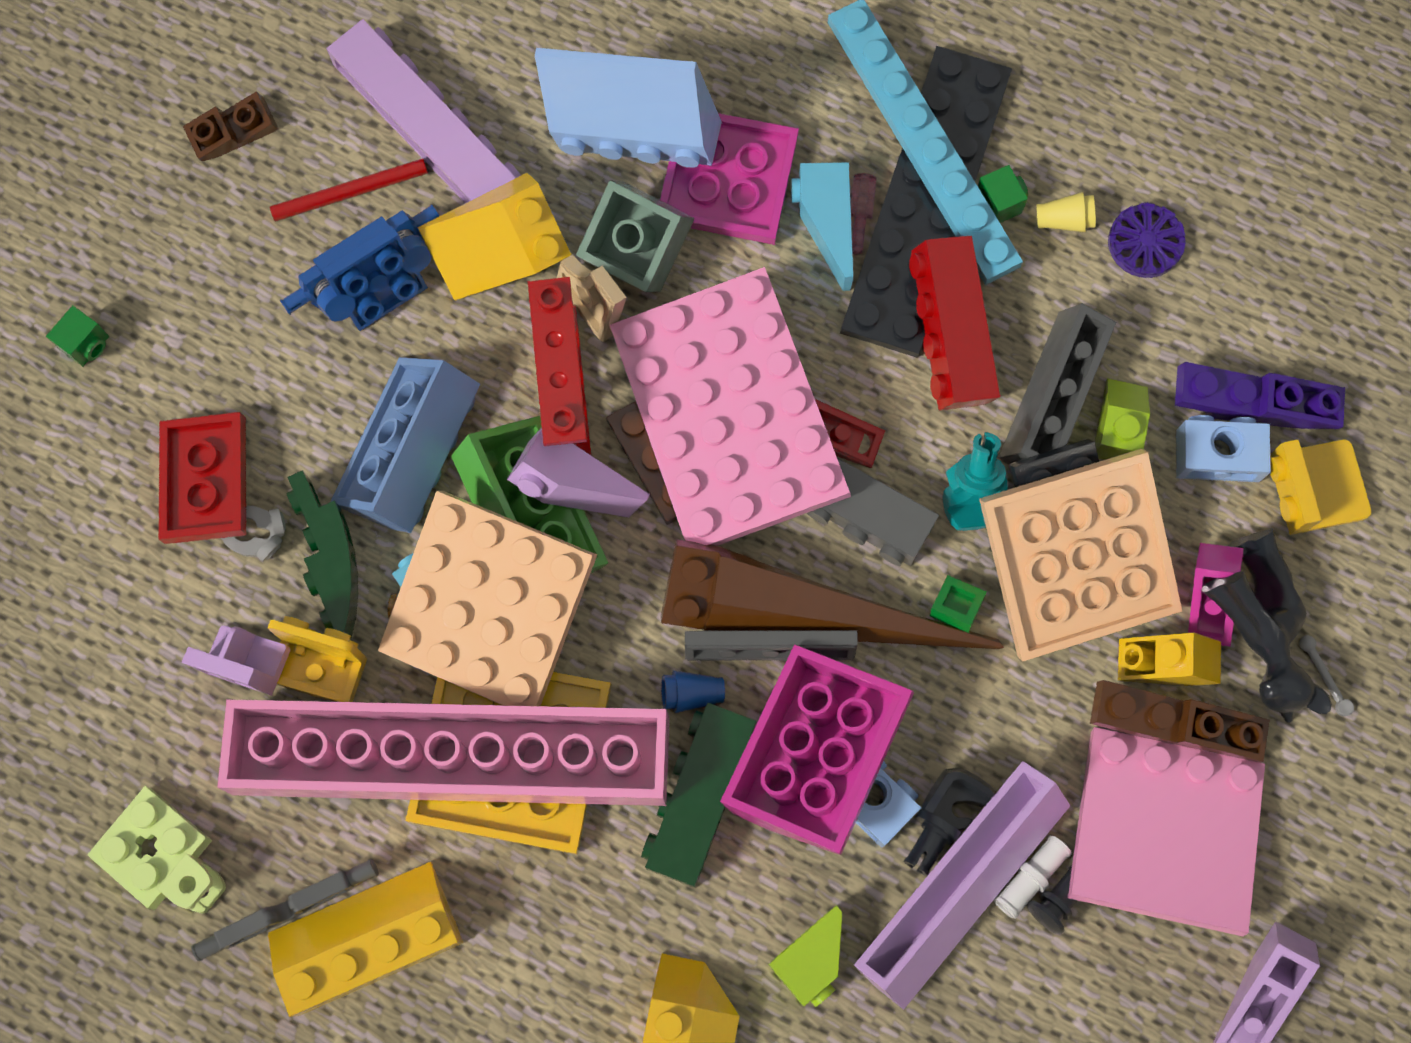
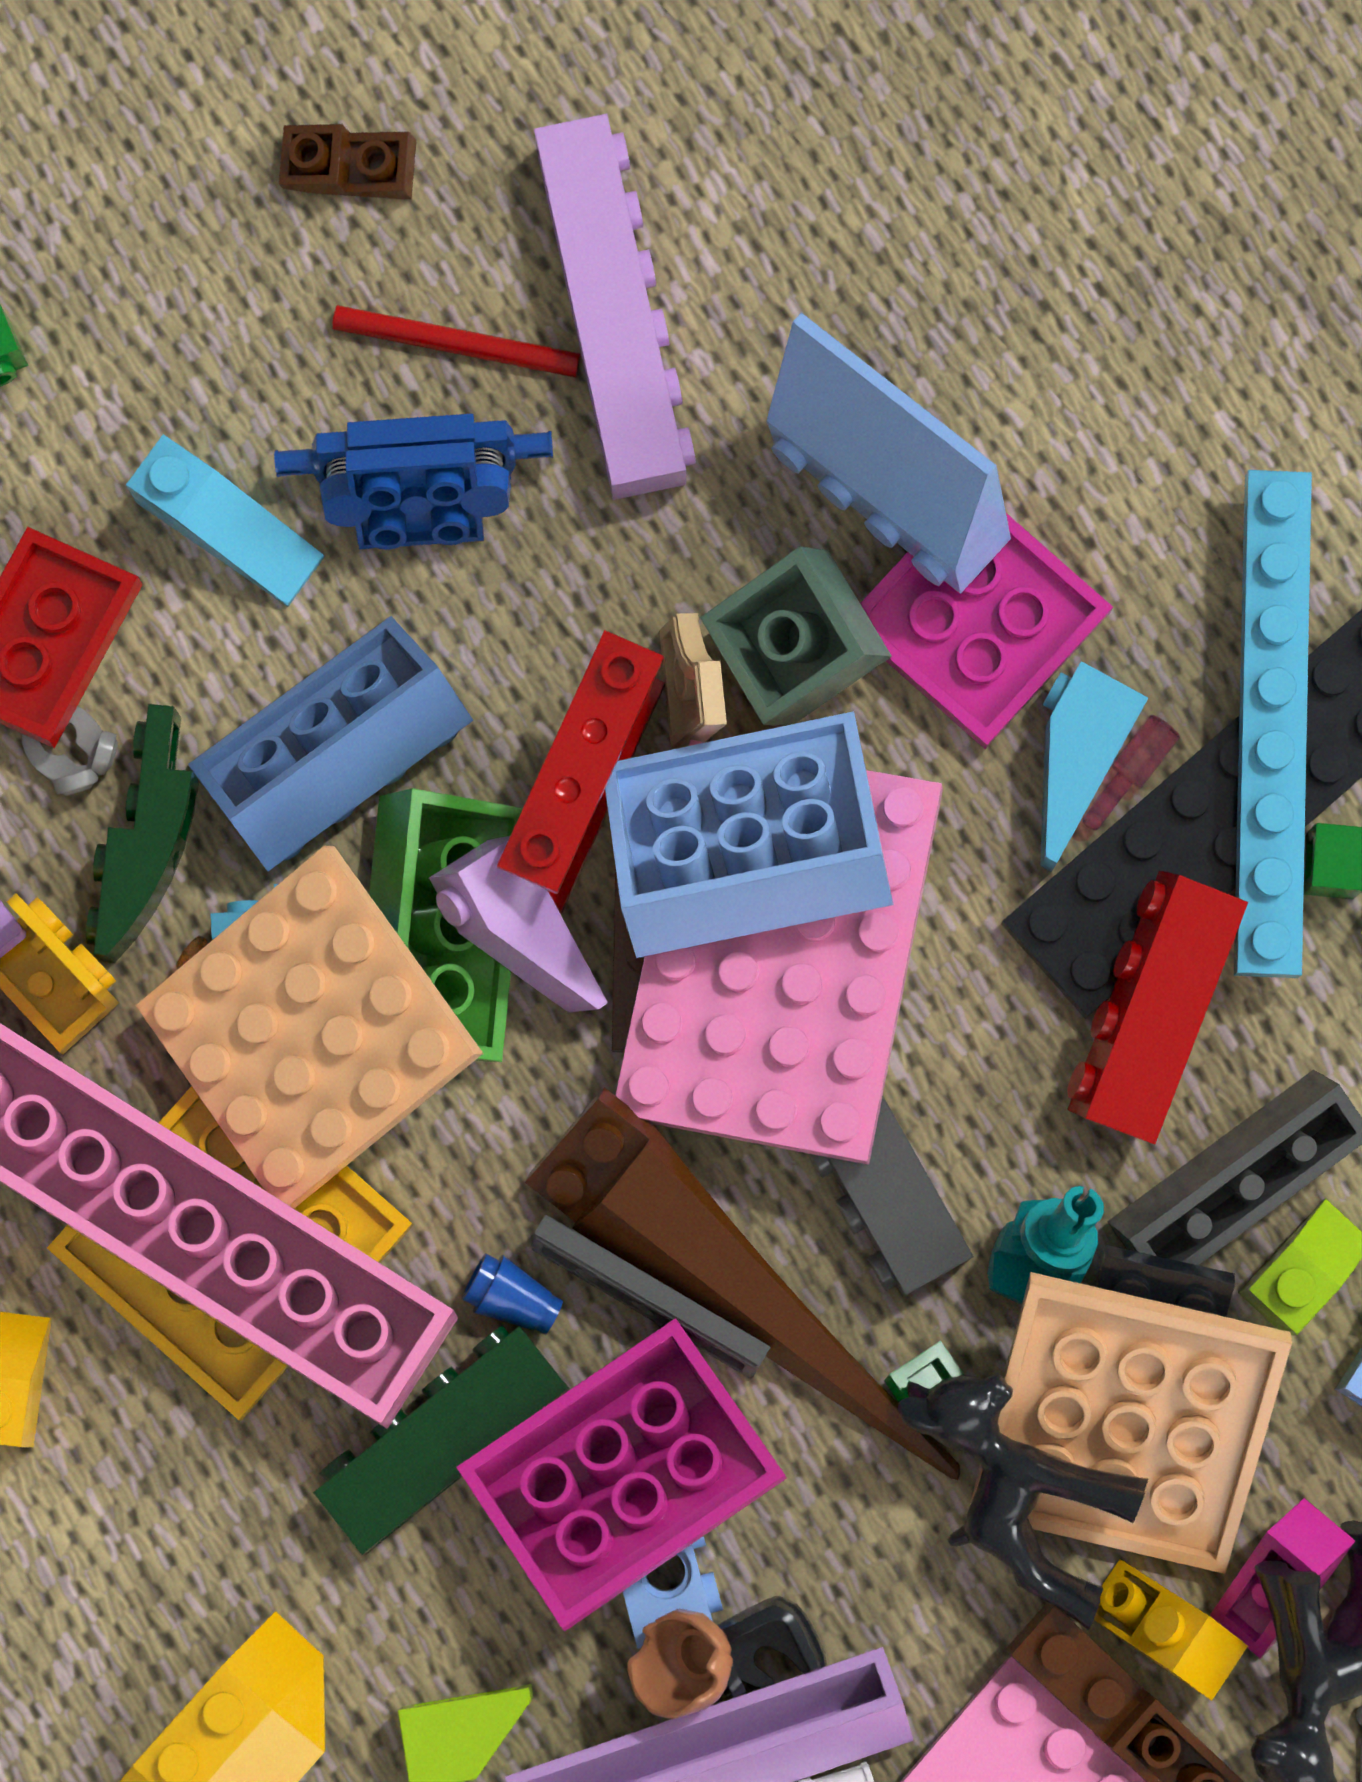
camera: 30 degrees right, 5 degrees up
(270, 355) = (223, 520): none -> medium azure slope
(495, 238) = (607, 531): yellow slope -> none
(675, 352) = (745, 835): none -> light blue slope
(847, 434) = (922, 1068): red slope -> none
(917, 836) = (681, 1664): none -> nougat hair
(991, 603) = (965, 1416): none -> black animal

